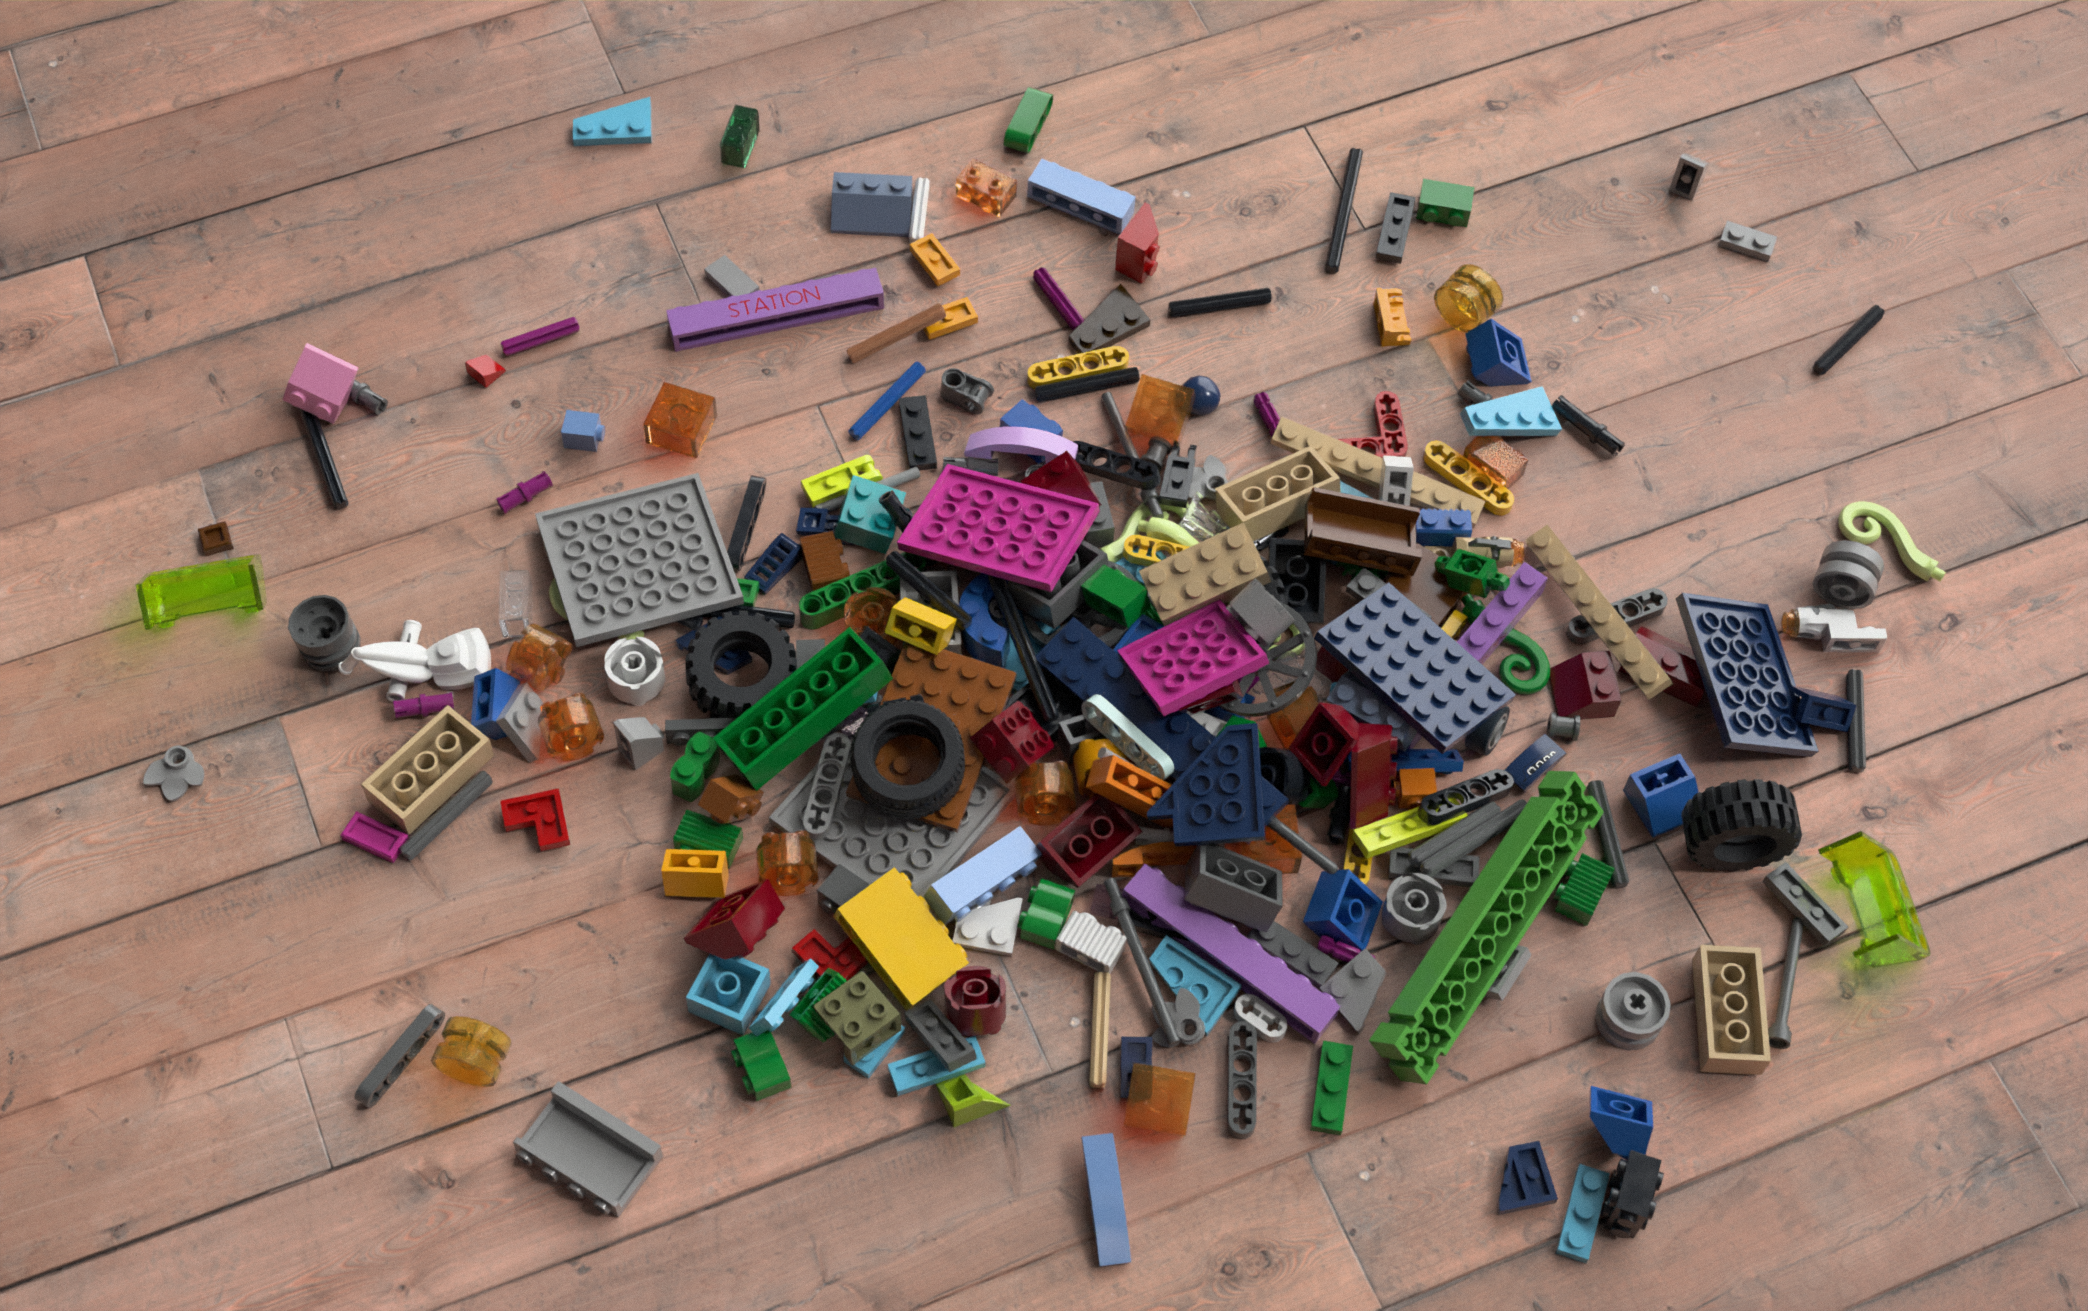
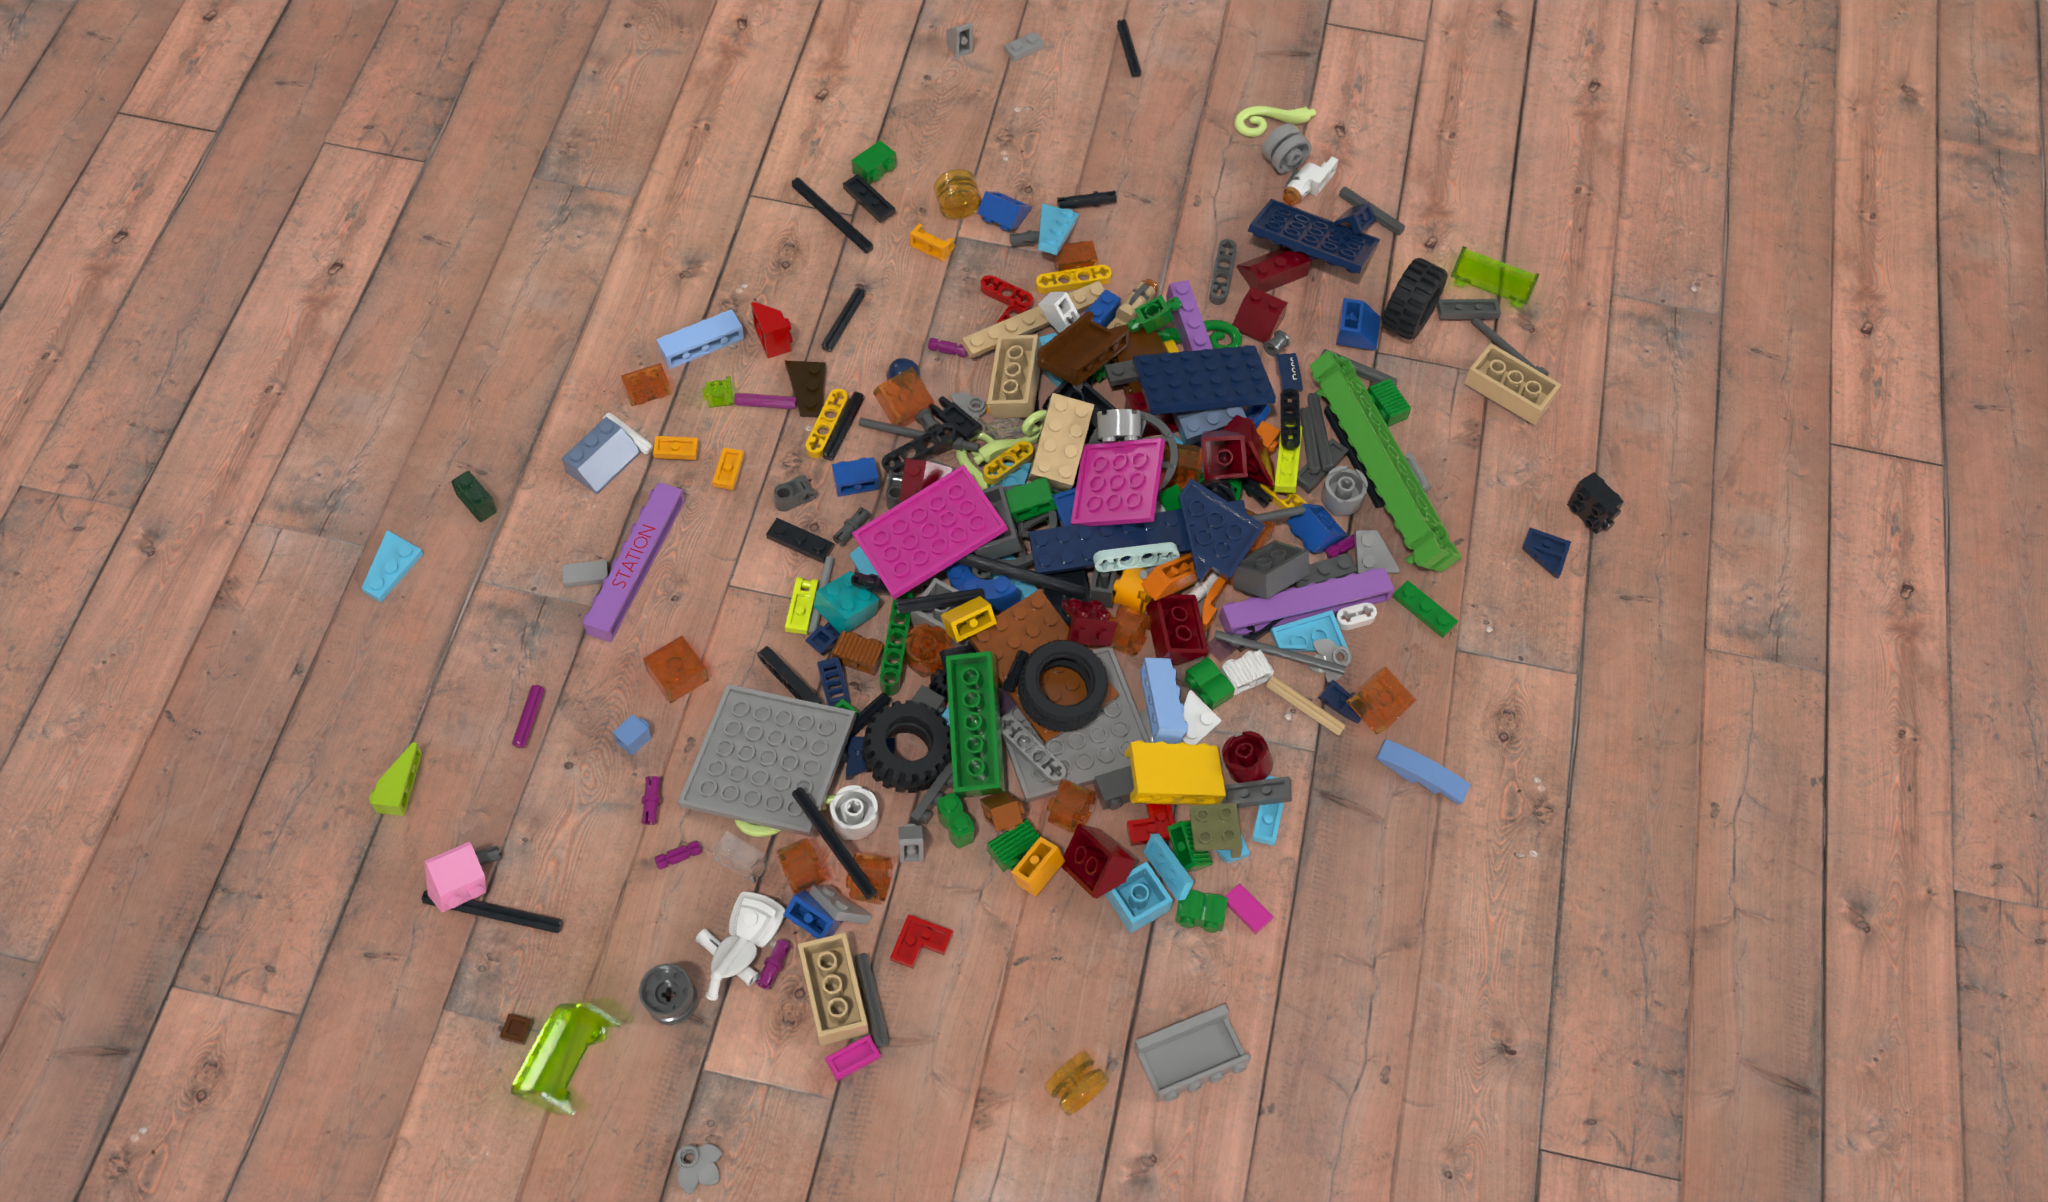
camera: 55 degrees left, 0 degrees up
(389, 282) = (395, 786): none -> lime slope
(399, 1056) = (1040, 1135): dark grey beam -> none
(484, 369) = (525, 768): slope -> none
(484, 552) = (678, 854): none -> magenta axle
(573, 666) = (834, 843): none -> black axle
(800, 1111) = (1248, 908): none -> dark pink tile
(887, 400) = (761, 542): blue axle -> none
(896, 333) = (716, 503): nougat axle -> none
(966, 1100) = (1303, 809): lime slope -> none
(1018, 440) = (864, 484): lavender slope -> none
(1028, 120) = (614, 329): beam -> none
(1030, 252) = (718, 393): none -> clear neon green brick
(1242, 1079) = (1391, 648): dark grey beam -> none
(1582, 1213) = (1583, 537): medium azure plate -> none
(1598, 612) = (1221, 274): tan plate -> none
(1621, 1120) = (1551, 476): blue slope -> none
(1632, 1011) = (1481, 429): light grey wheel -> none

